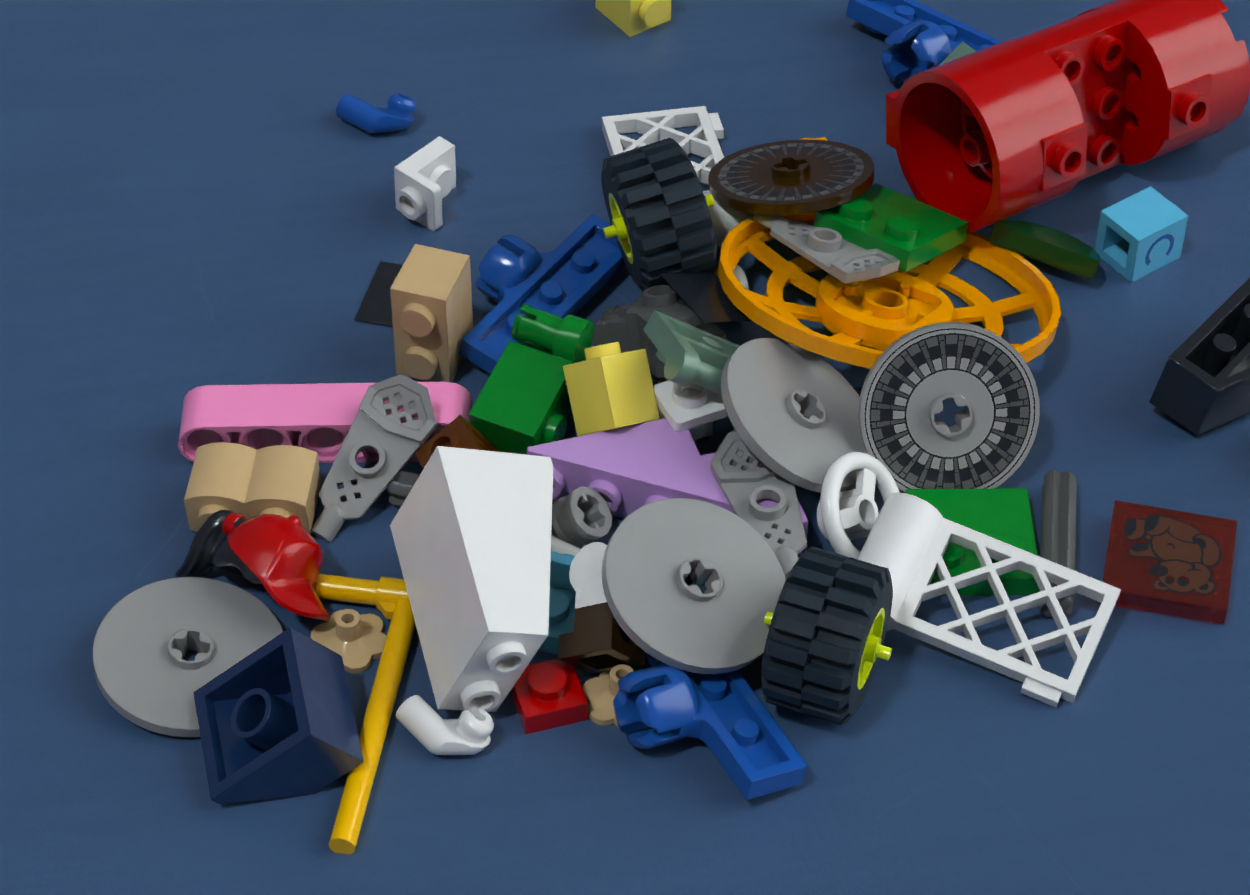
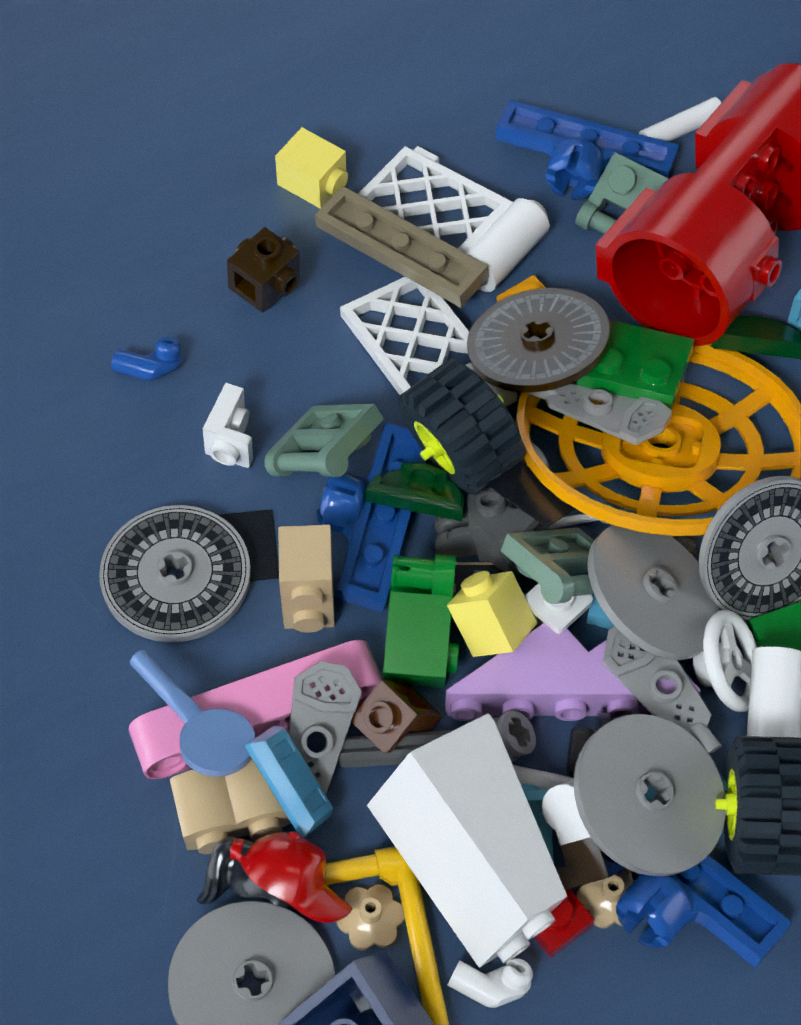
camera: 20 degrees left, 15 degrees up
(251, 416) = (210, 739): none -> medium blue piece
(268, 304) = (159, 604): none -> piece
(319, 478) = (290, 779): none -> dark azure tile
(515, 212) = (330, 431): none -> sand green plate
(534, 60) = (264, 269): none -> dark brown brick
(593, 274) = (417, 489): none -> dark green tile
(693, 76) = (402, 246): none -> dark tan plate
(789, 100) = (497, 239): none -> white piece

